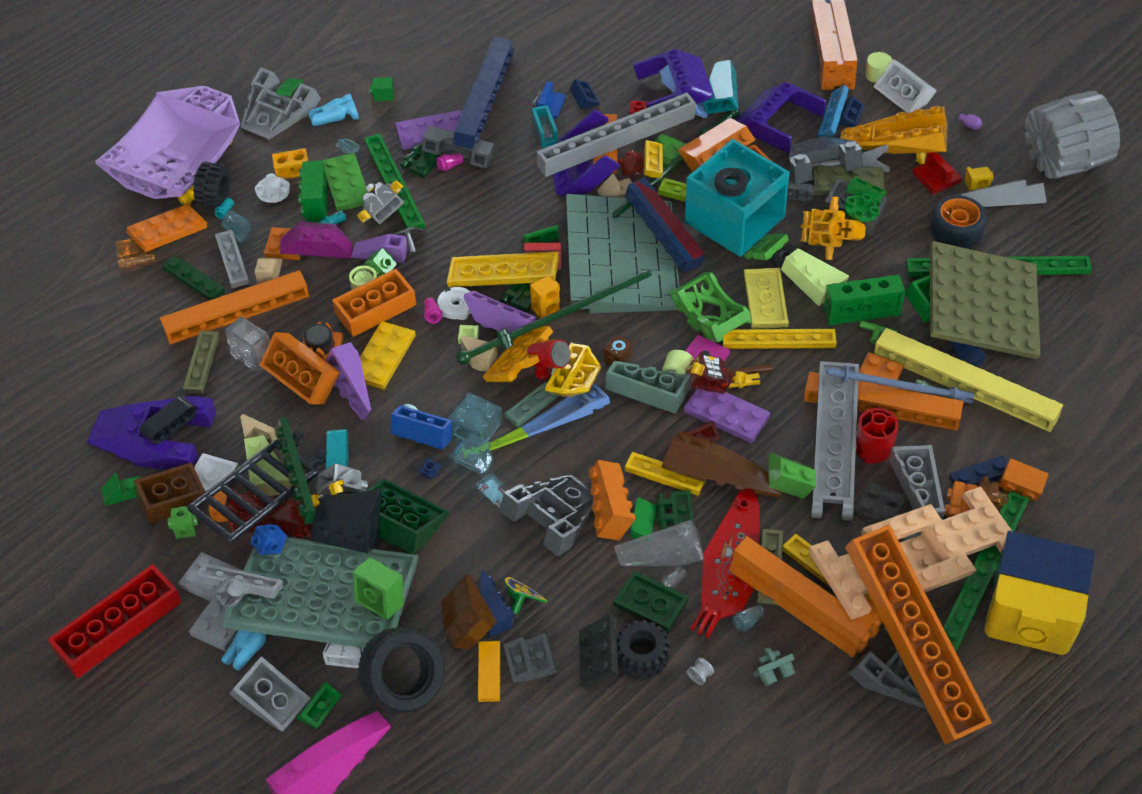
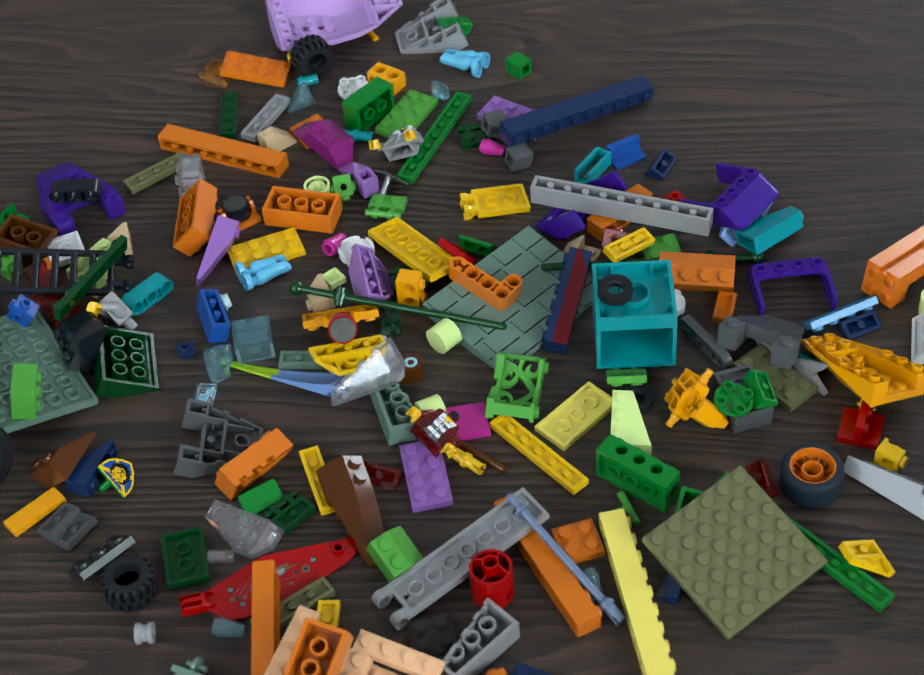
camera: 50 degrees right, 5 degrees down
(405, 371) = (261, 271): none -> medium azure piece
(429, 257) = (386, 206): none -> bright green plate
(506, 197) = (494, 201): none -> yellow tile
(560, 332) = (391, 323): none -> clear green plate
(600, 255) = (495, 293): none -> orange beam
(611, 311) = (444, 335): none -> yellowish green piece
(623, 363) = (376, 373): none -> clear wedge
(919, 246) = (763, 475): none -> clear red slope
(1046, 246) = (867, 556): none -> yellow wing

